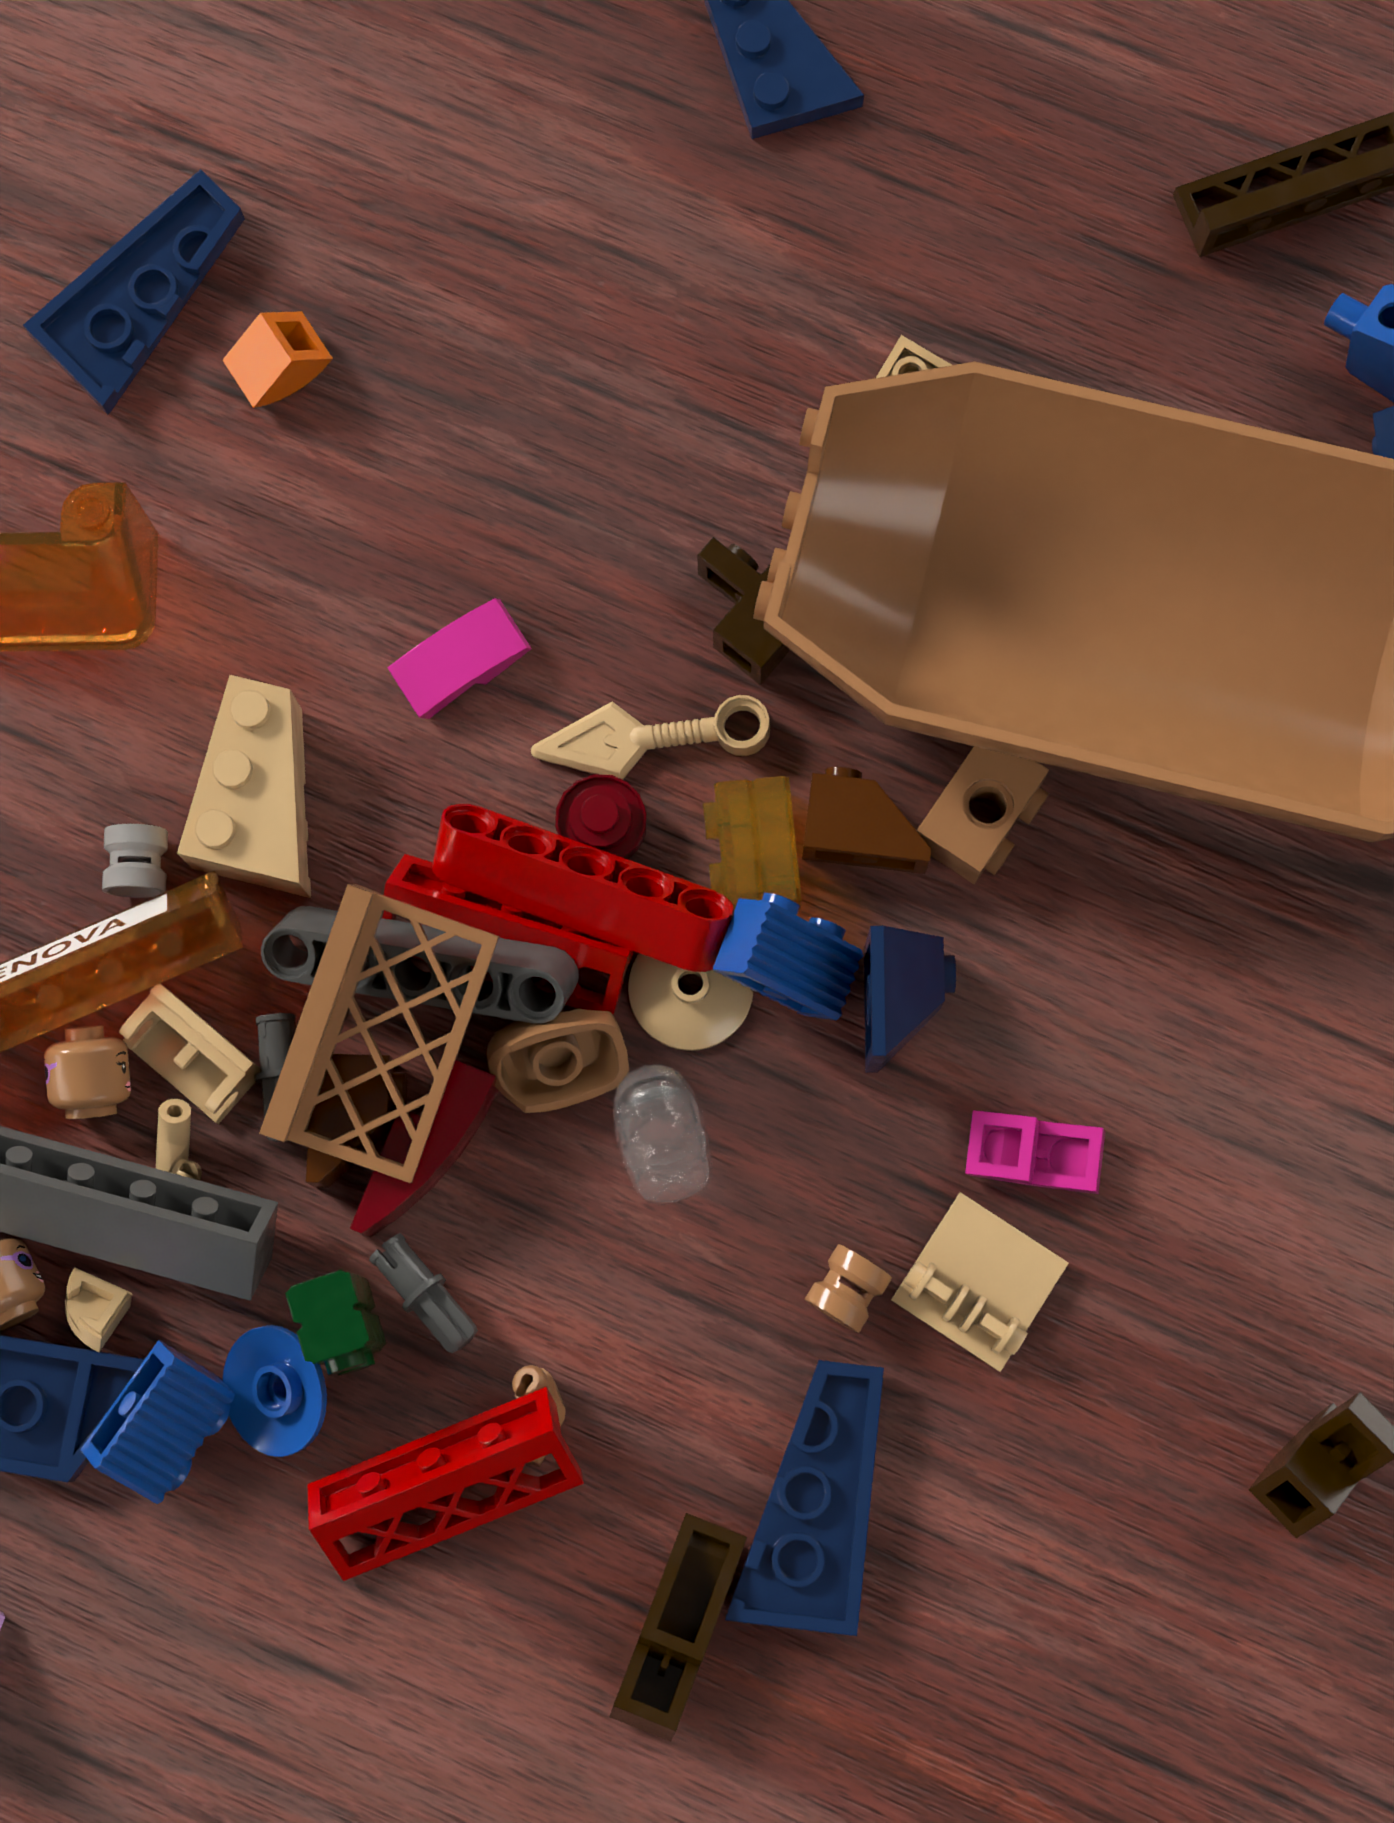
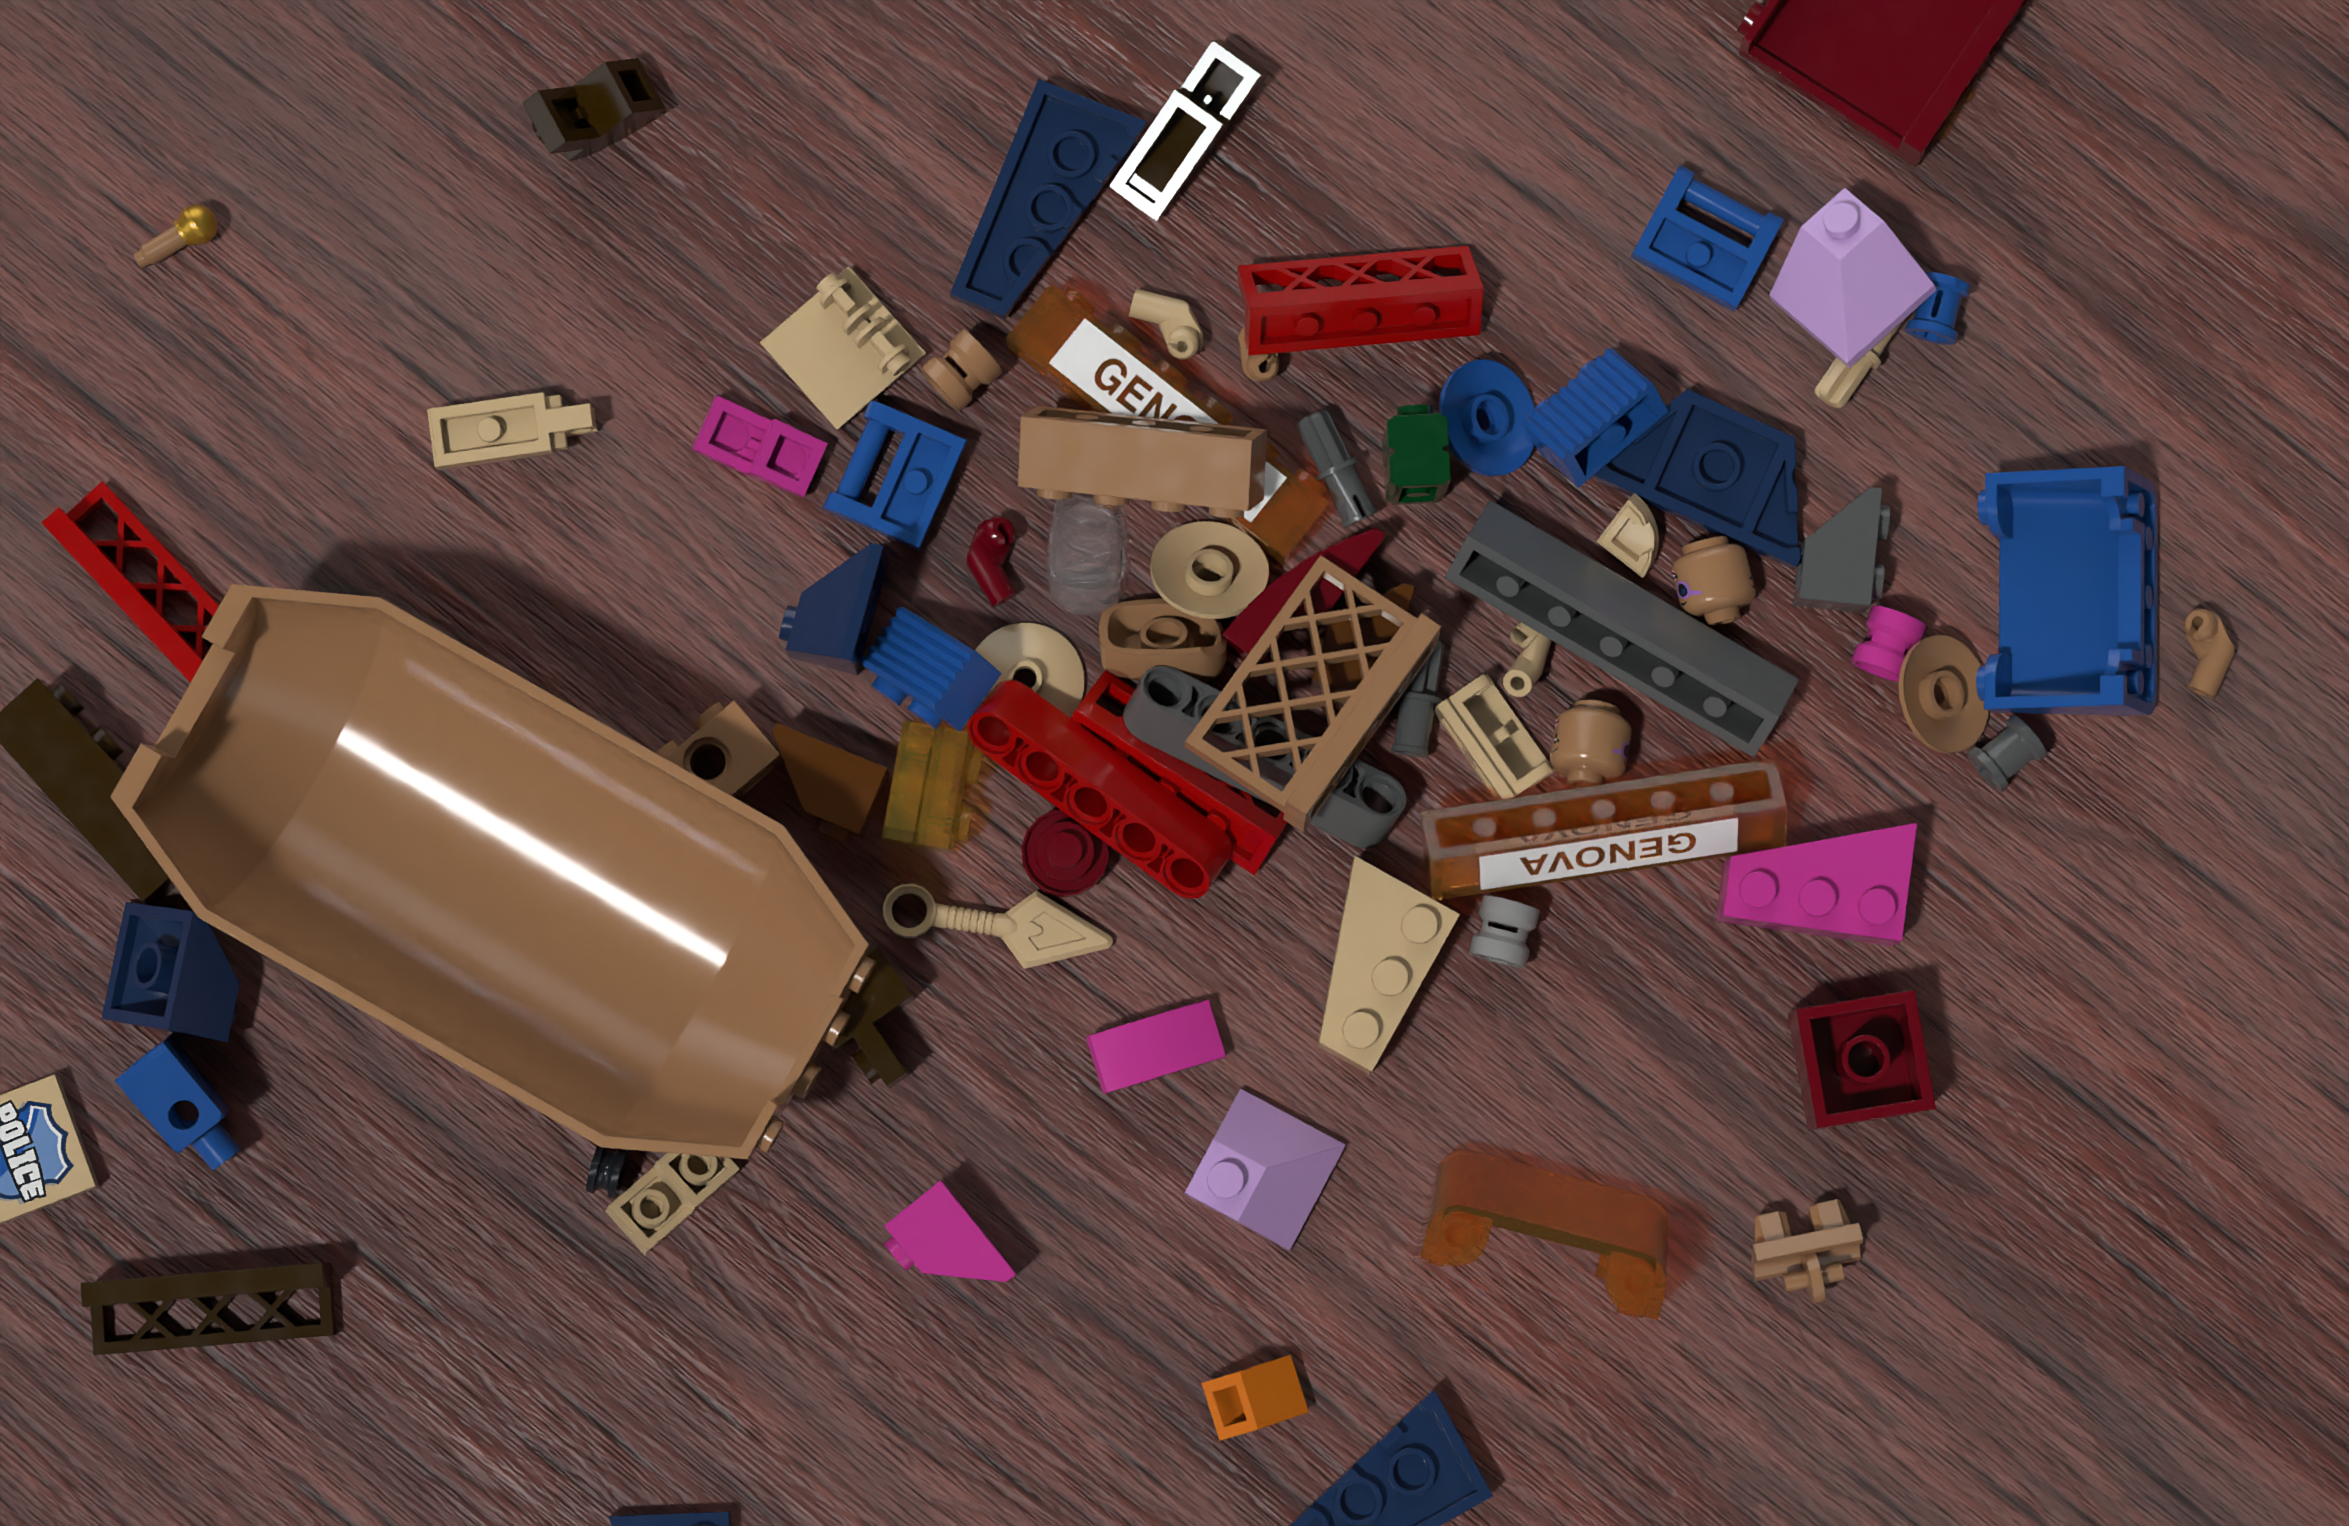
camera: 170 degrees left, 5 degrees up
(86, 1639) = (1697, 253): none -> blue plate
(325, 570) = (1264, 1169): none -> lavender slope
(523, 1171) = (1214, 554): none -> tan dish
(613, 419) = (944, 1240): none -> dark pink slope
(613, 1290) = (1109, 375): none -> clear orange brick
(625, 1232) = (1142, 460): none -> medium nougat brick
(636, 1407) = (1174, 319): none -> tan arm
(765, 1100) = (987, 558): none -> dark red arm
(864, 1154) = (913, 482): none -> blue plate
(1304, 1095) = (505, 429): none -> tan hinge

